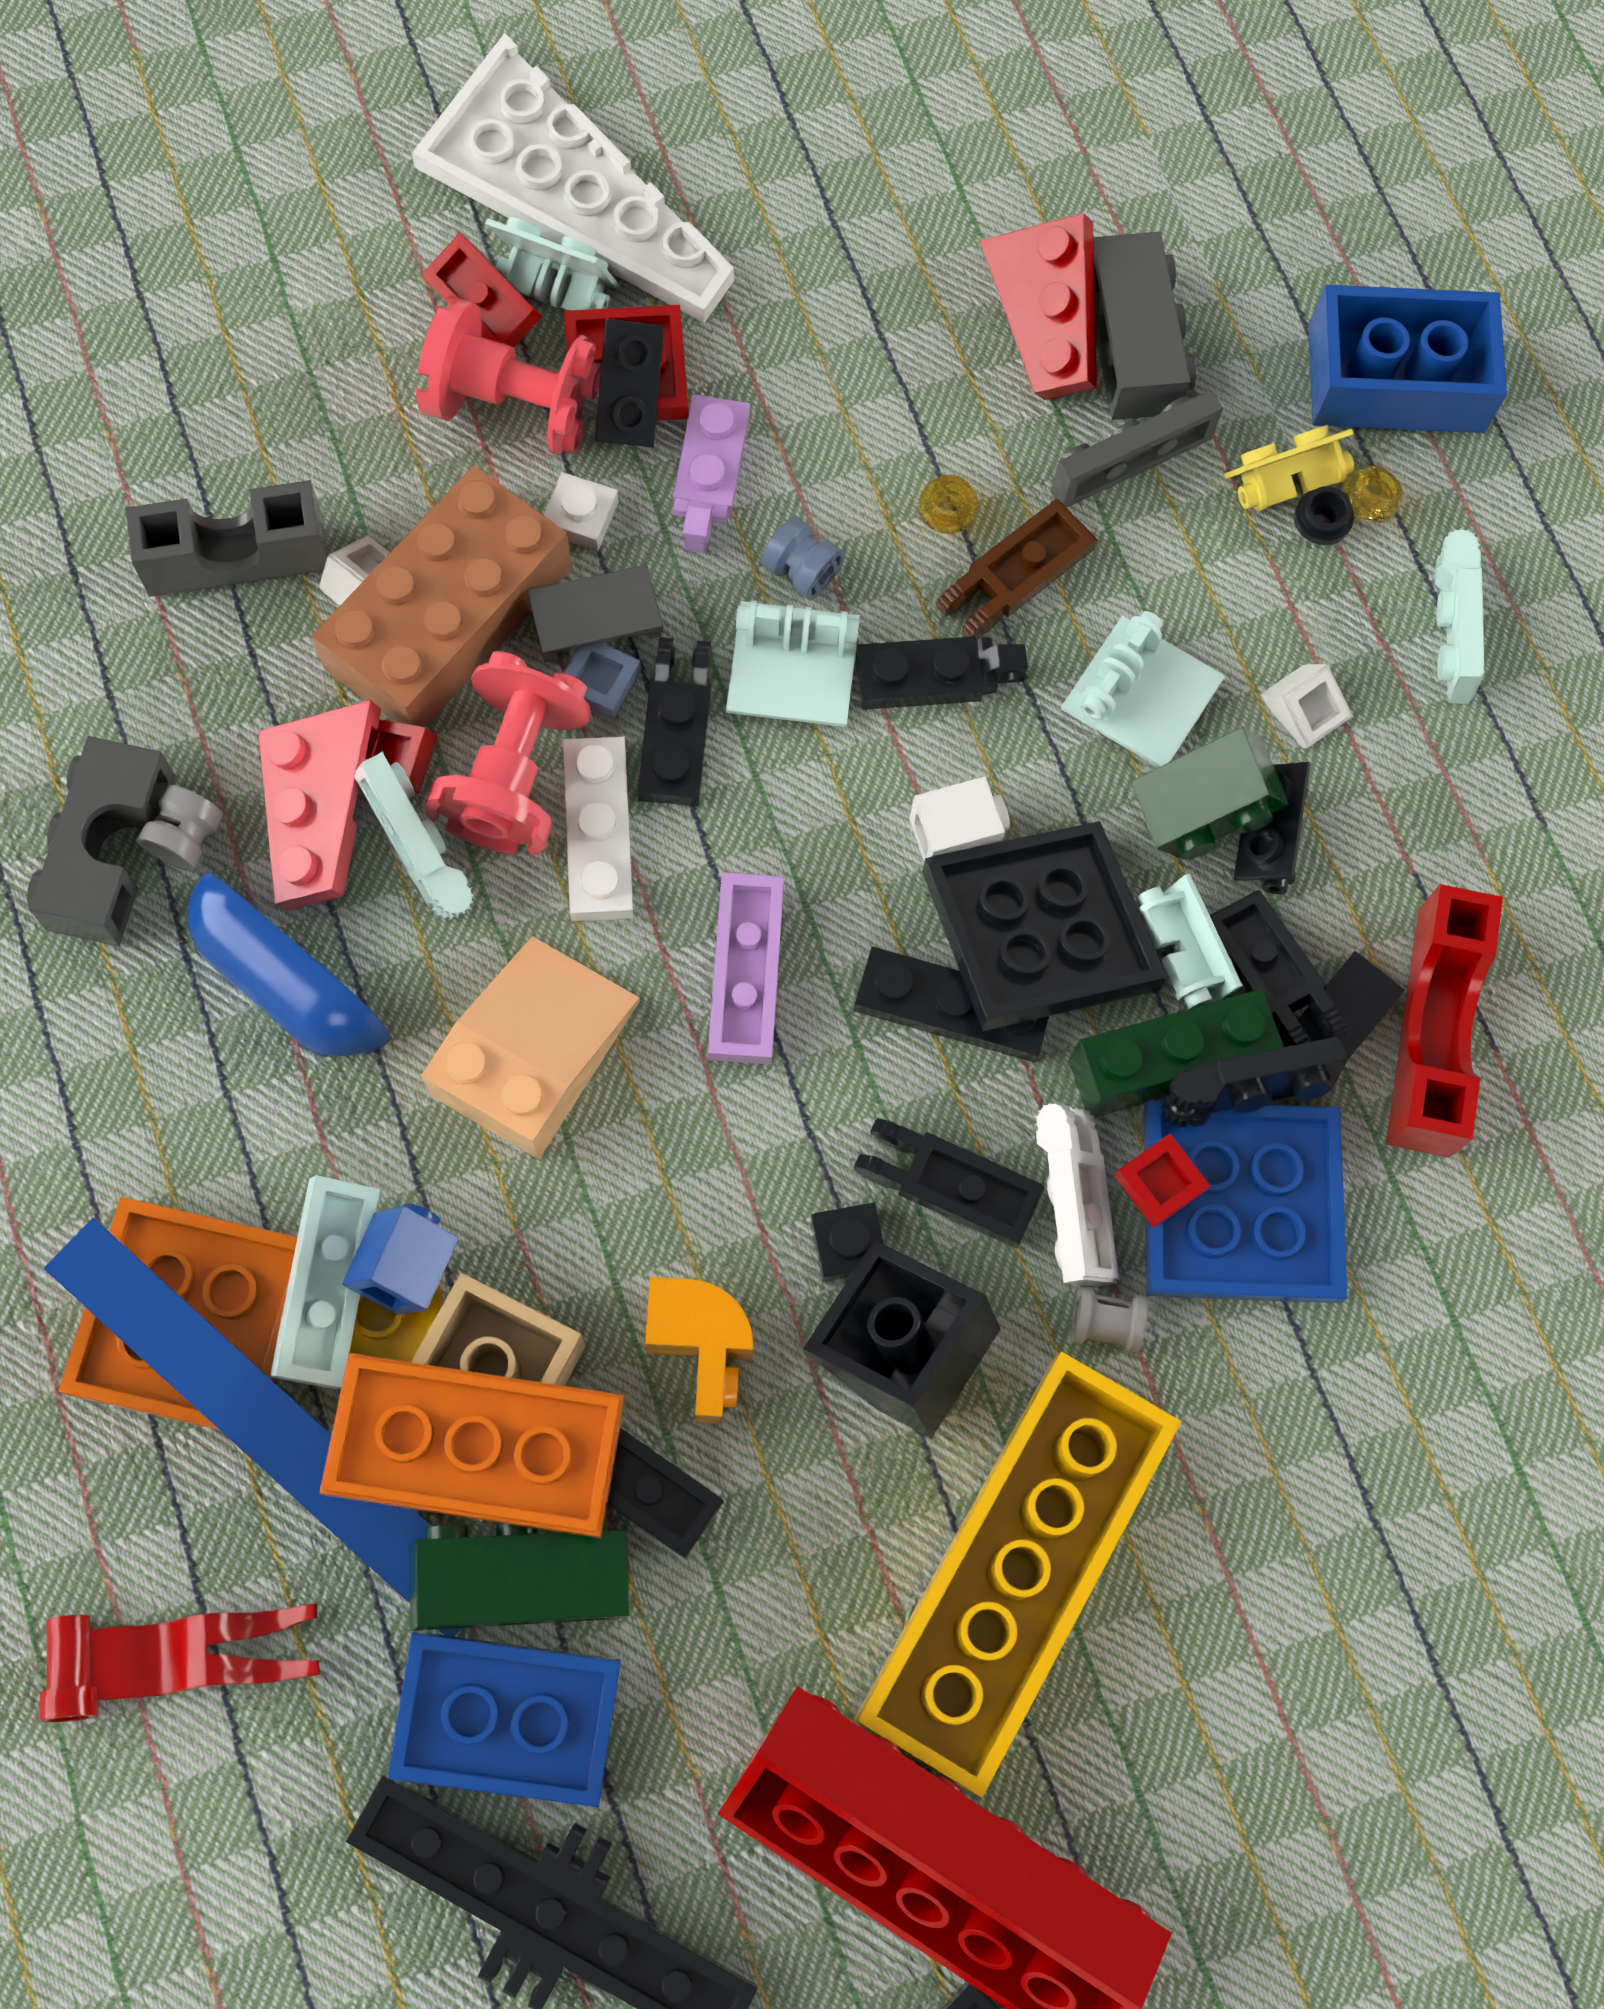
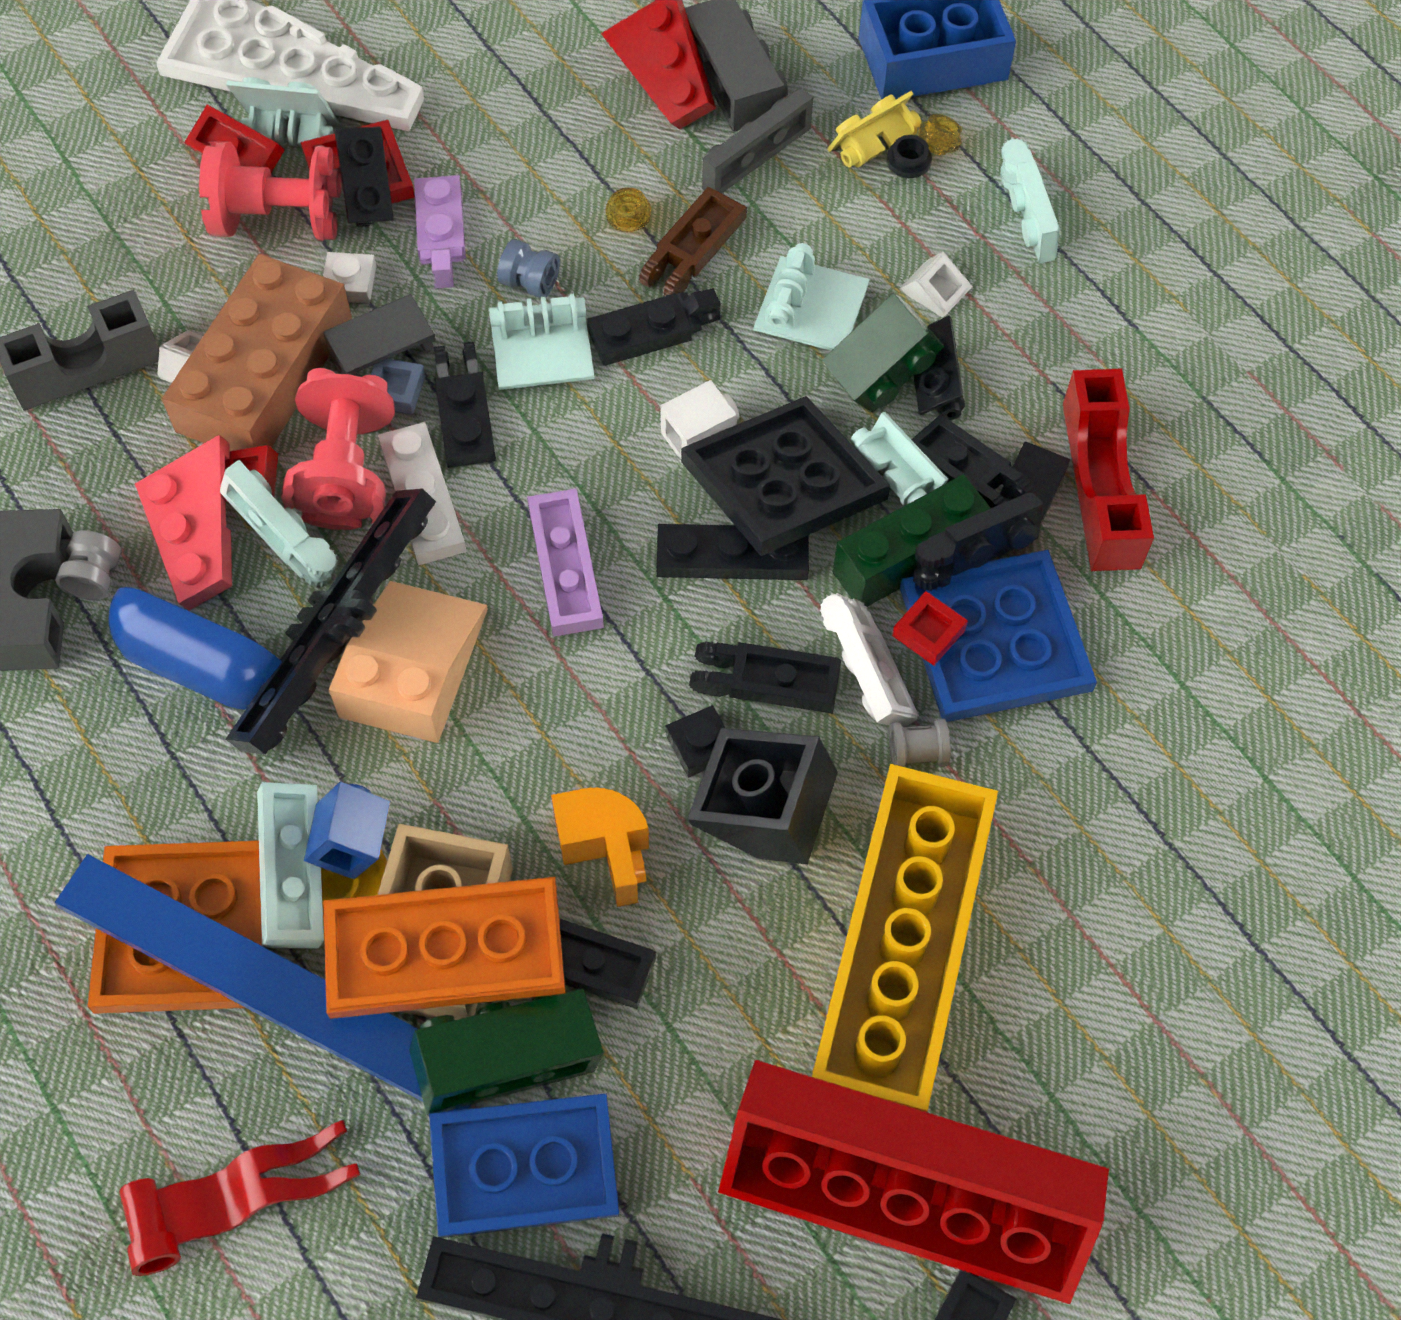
camera: 10 degrees left, 10 degrees down
(448, 980) = (330, 622): none -> black hinge

